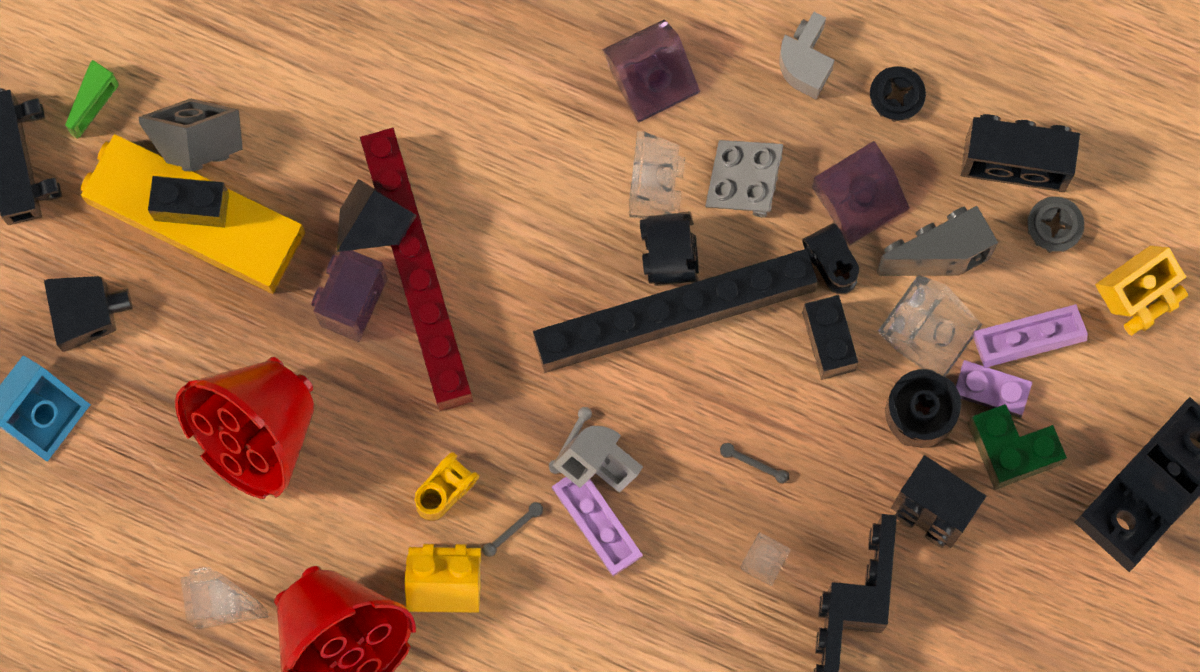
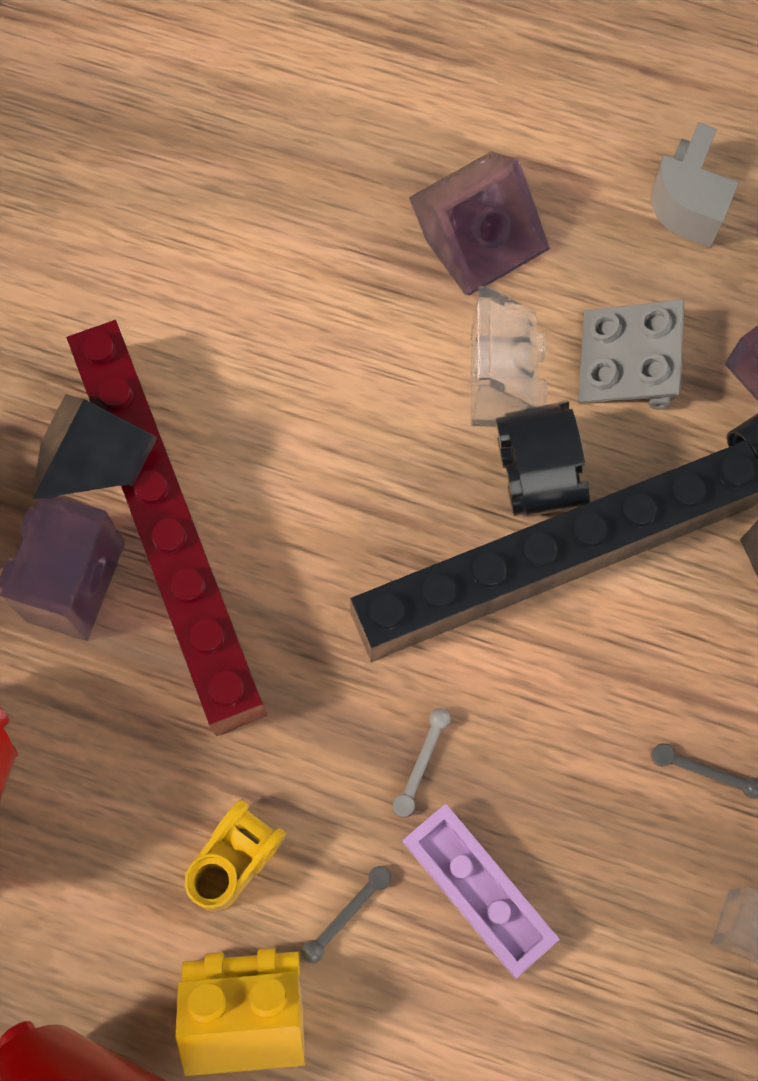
camera: 10 degrees left, 5 degrees down
(596, 452) = (467, 784): light grey brick -> none

